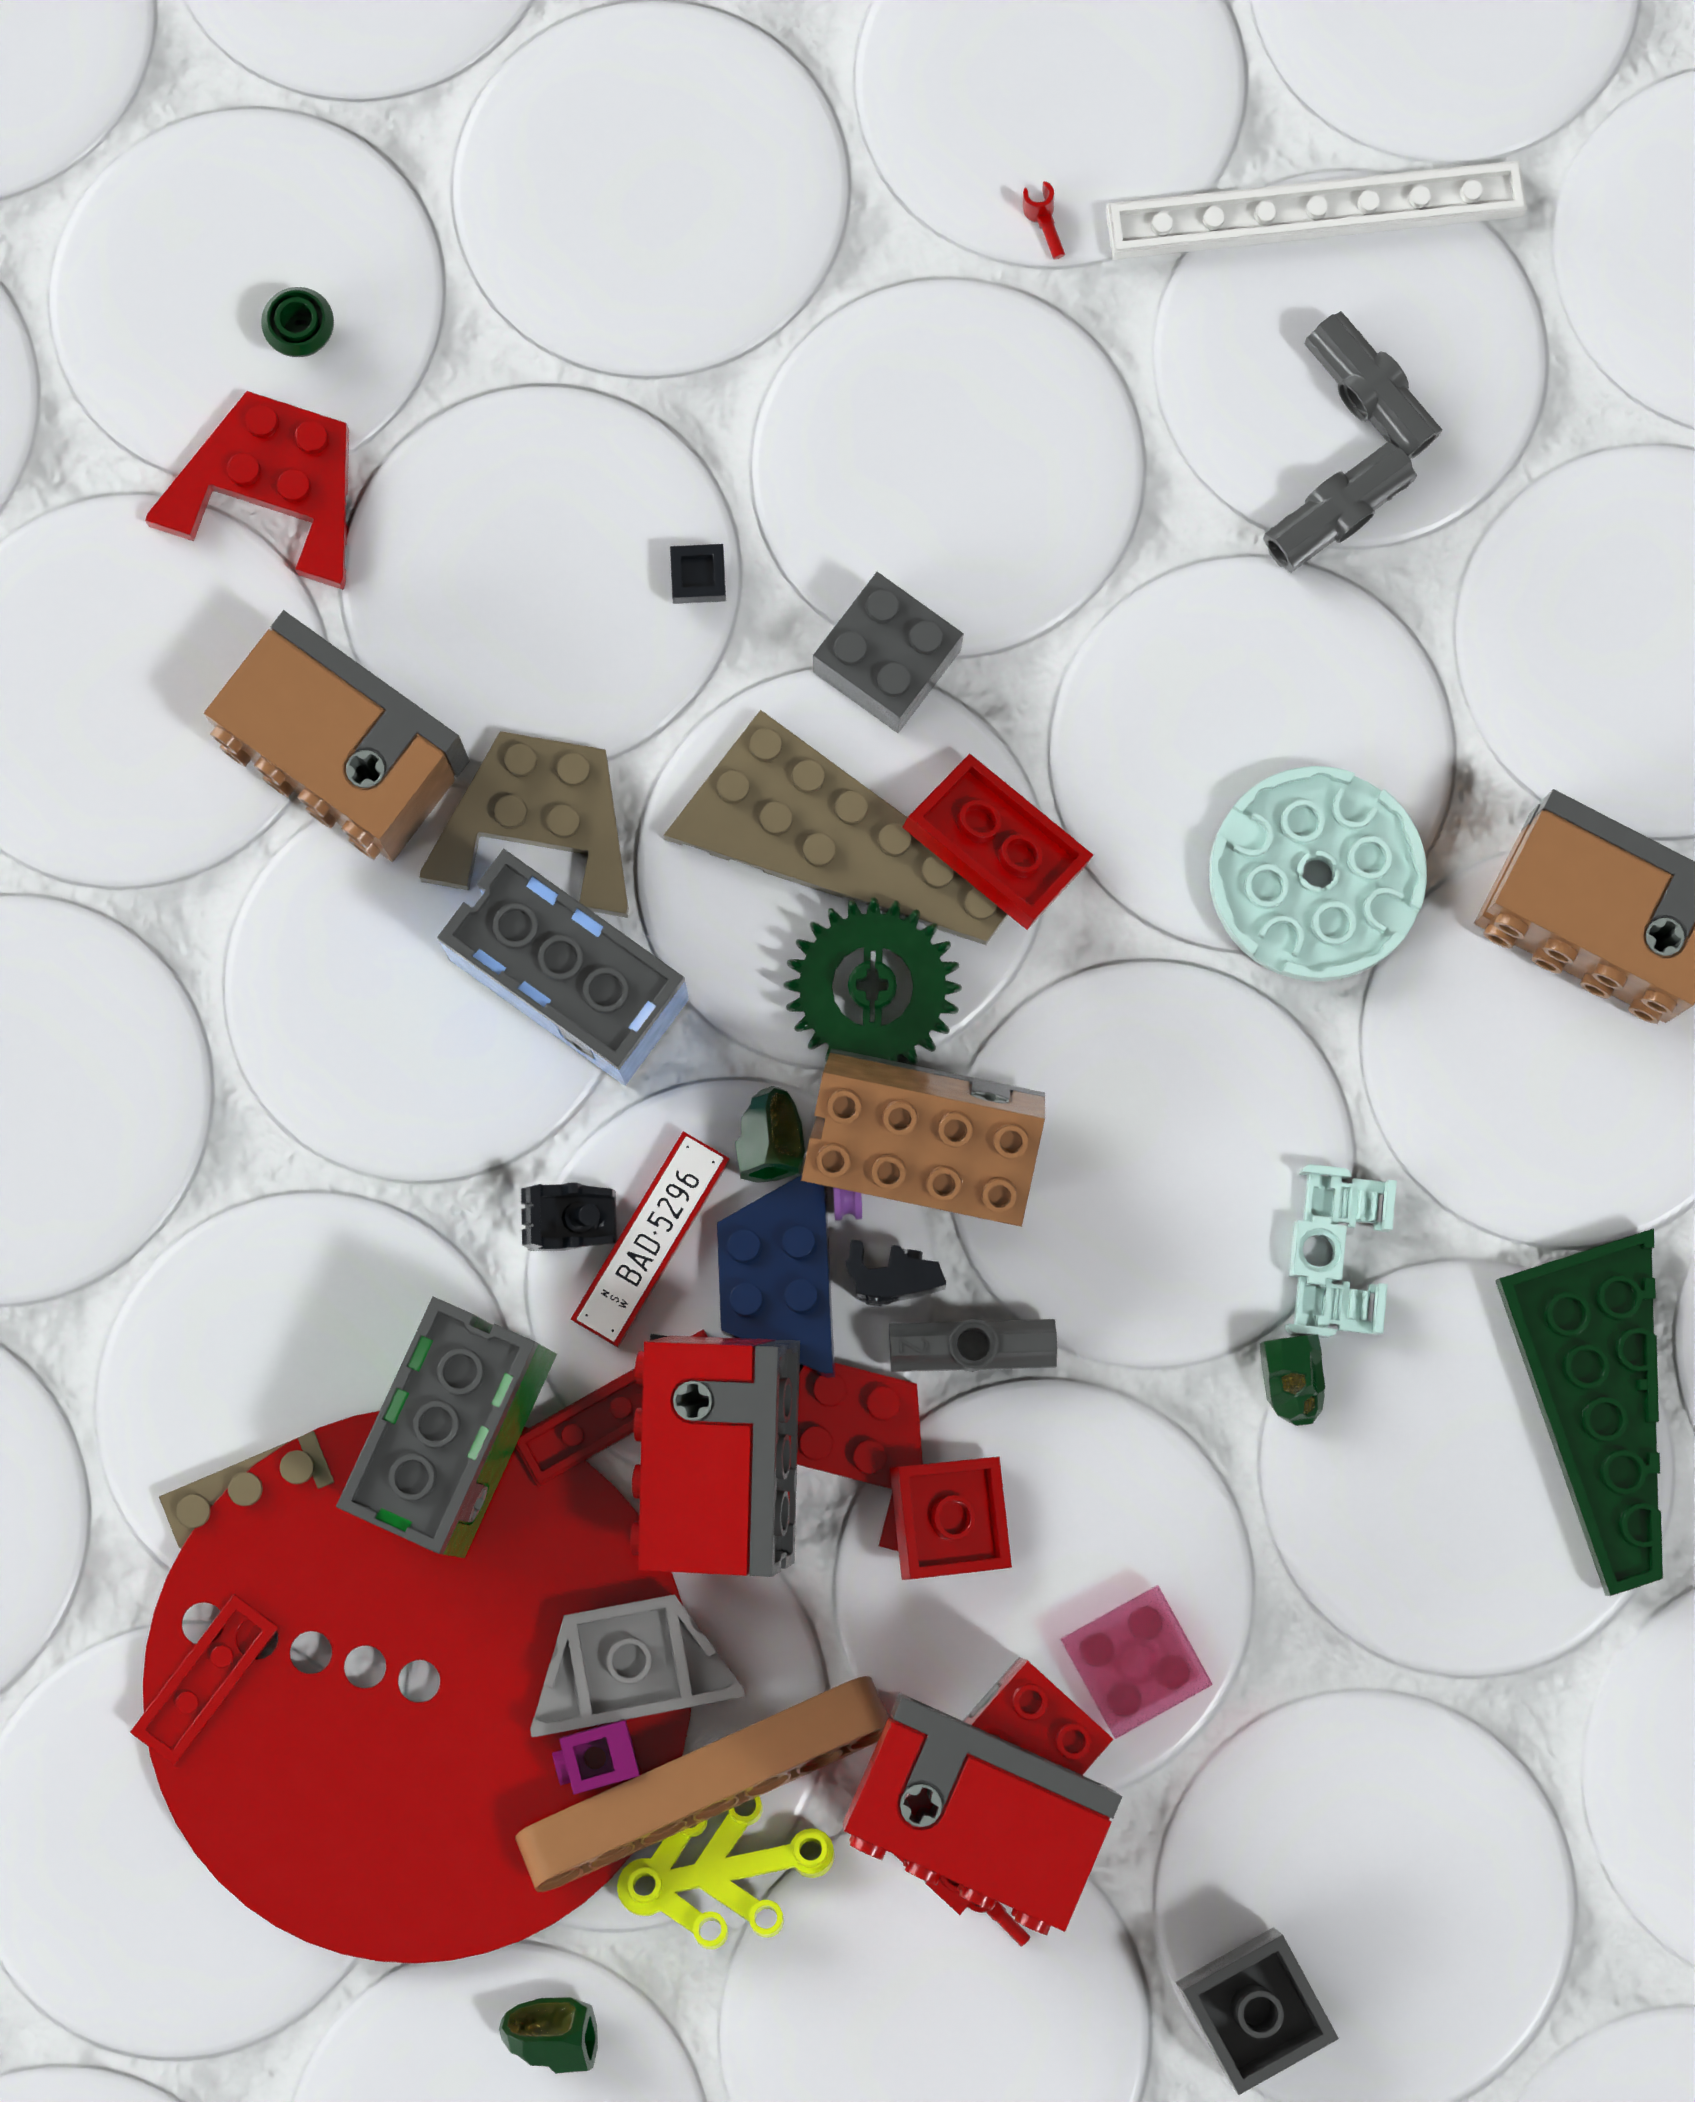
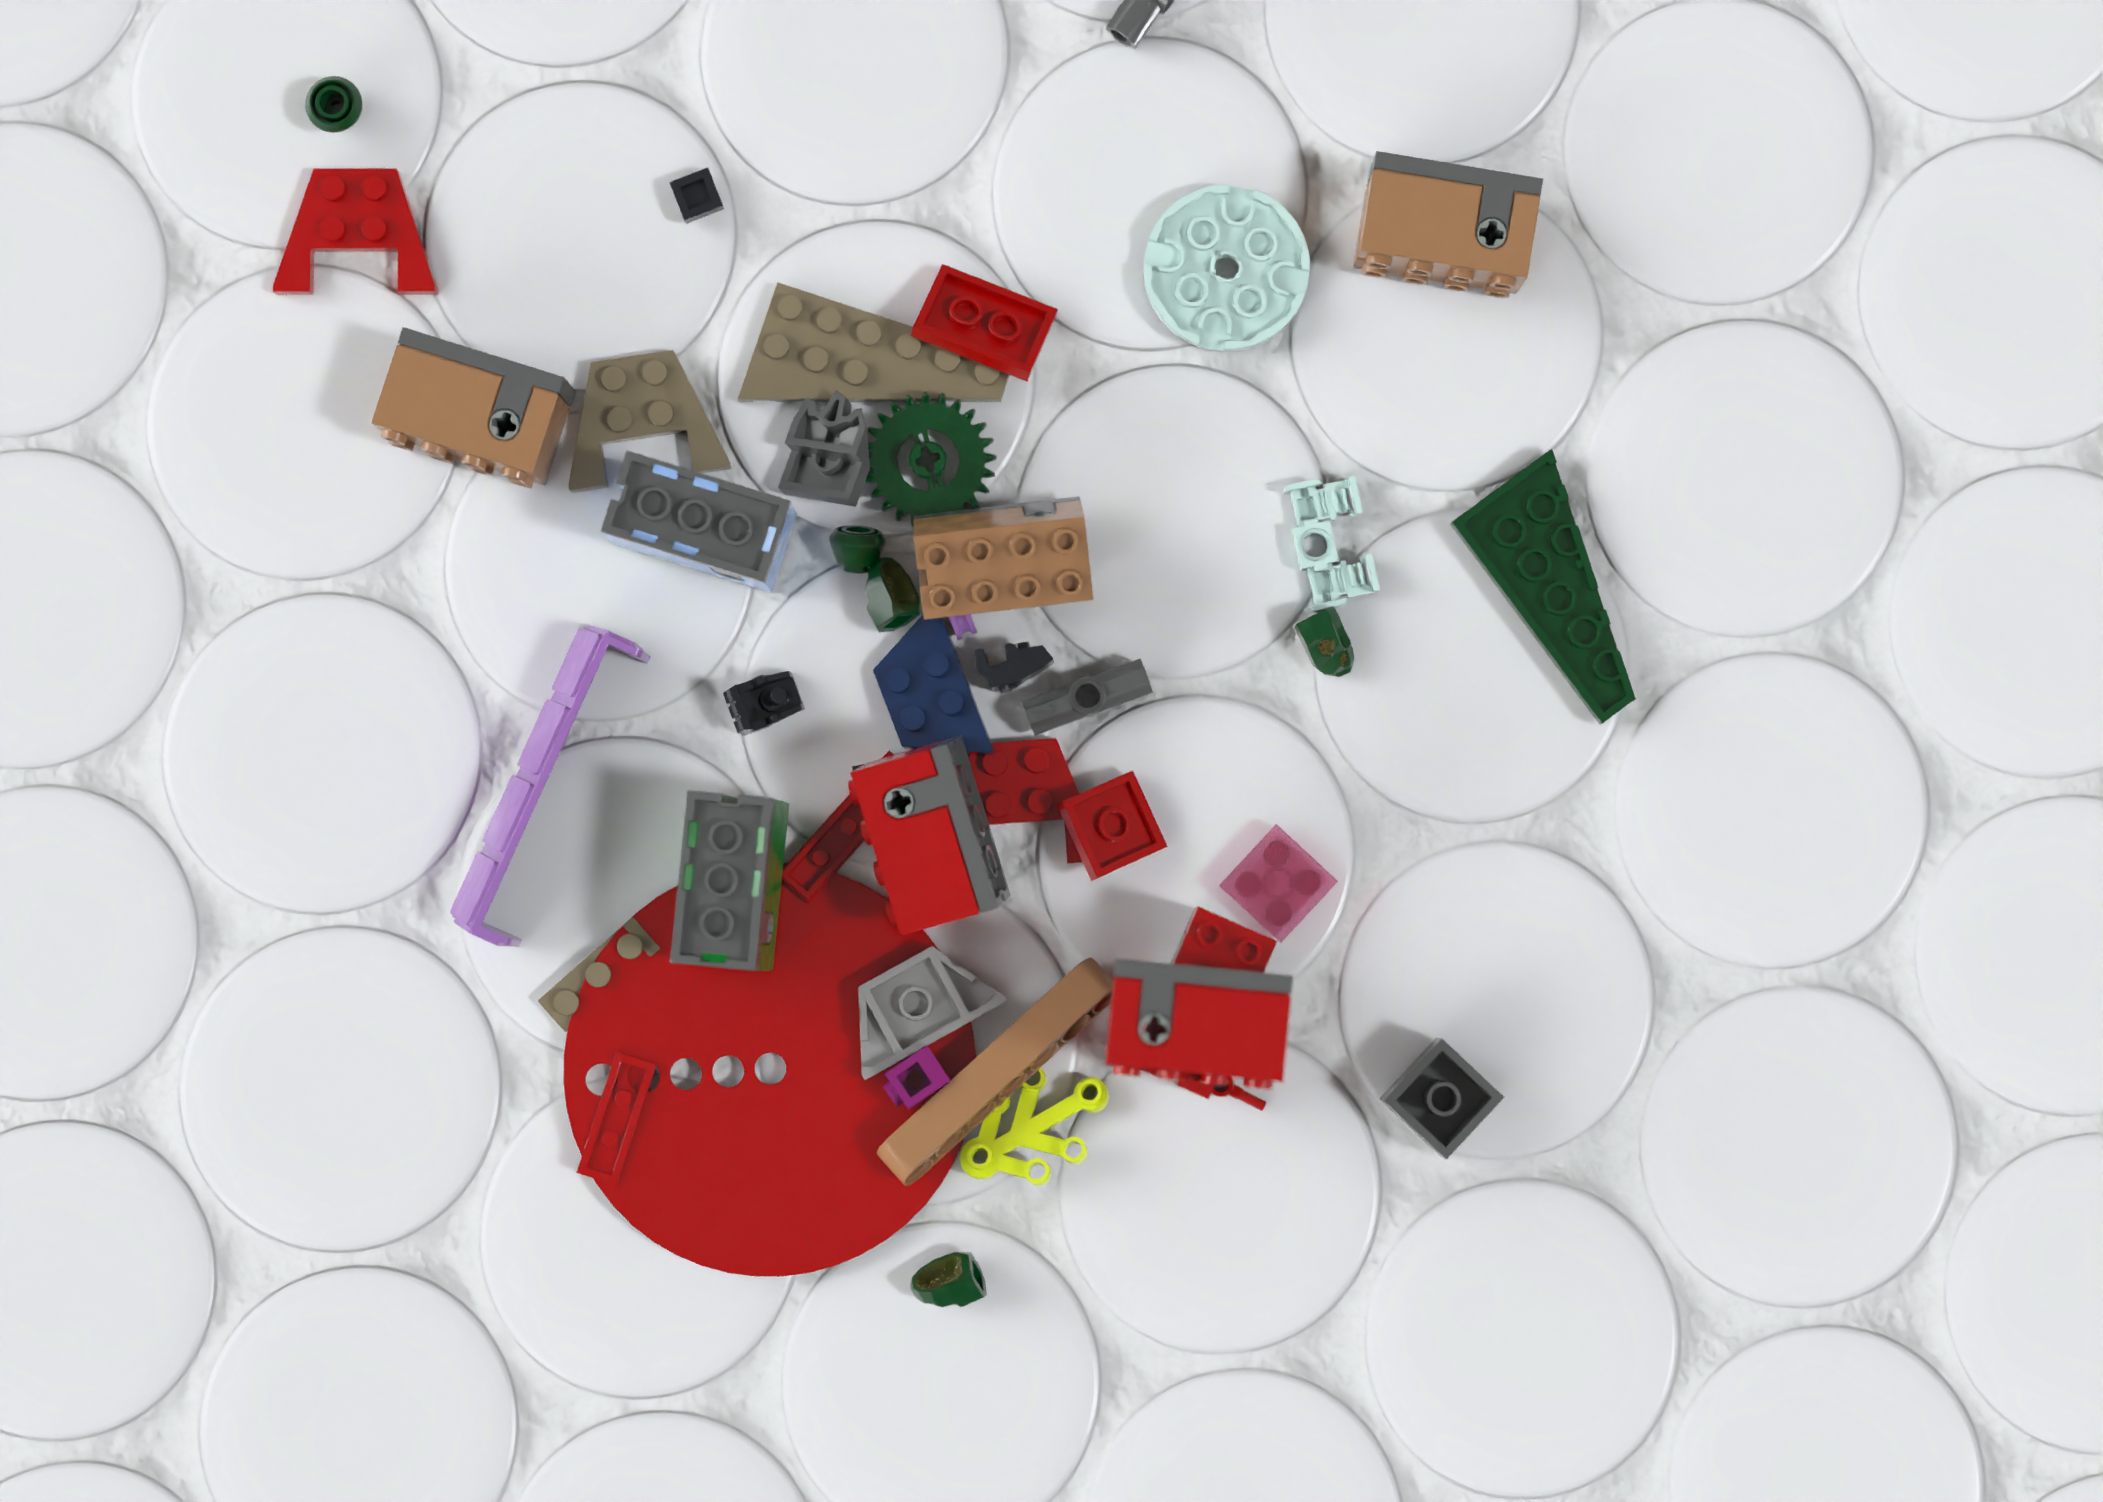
camera: 15 degrees left, 5 degrees up
(238, 1224) = (526, 787): none -> piece
(650, 1239) = (828, 698): white tile -> none
(748, 1064) = (857, 547): none -> dark green cone
(751, 936) = (827, 453): none -> dark grey plate
(887, 652) = (856, 208): dark grey brick -> none

